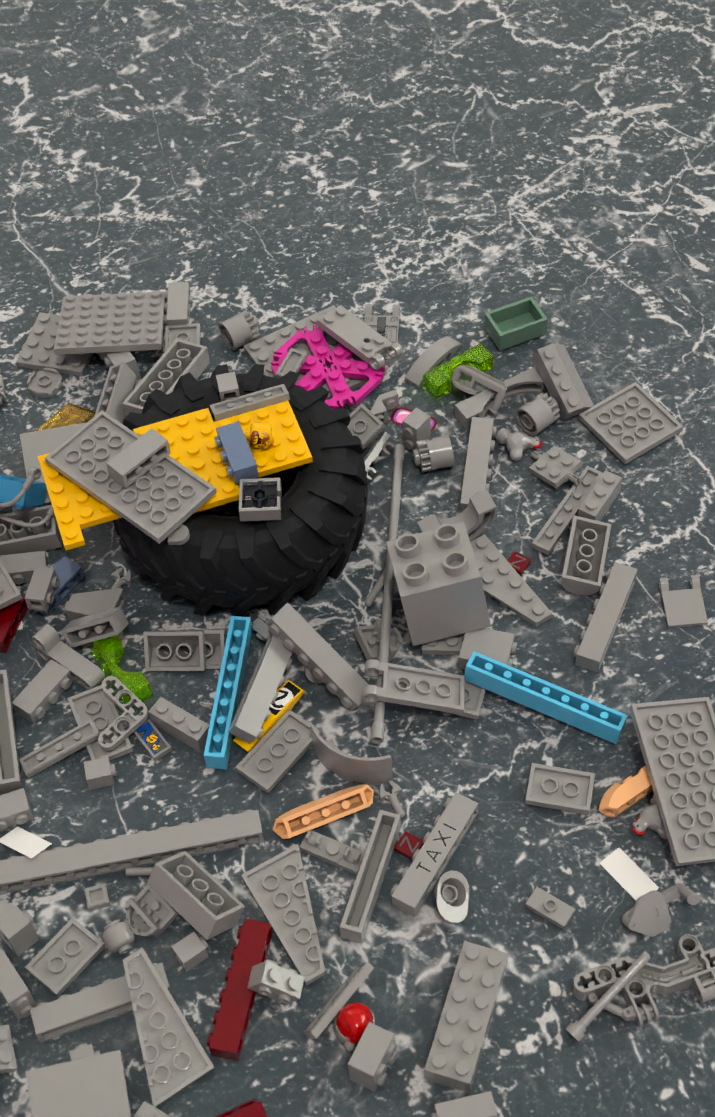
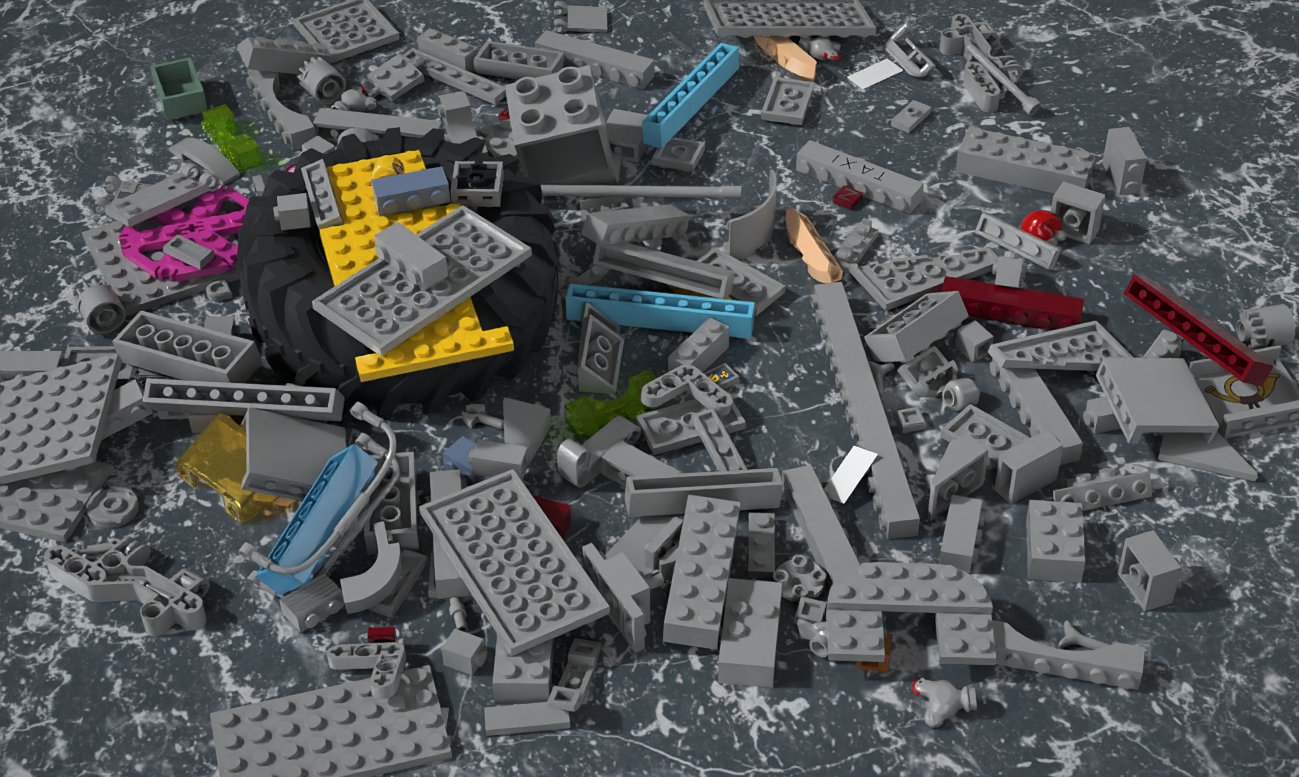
camera: 90 degrees left, 10 degrees down
(95, 627) = (563, 410): light grey brick -> none
(100, 773) = (758, 418): light grey brick -> none
(370, 876) = (888, 212): light grey brick -> none
(384, 795) = (783, 205): light grey bar -> none
(423, 687) = (679, 163): light grey hinge -> none
(452, 896) = (907, 166): light grey piece -> none
(479, 377) = (257, 111): light grey piece -> none

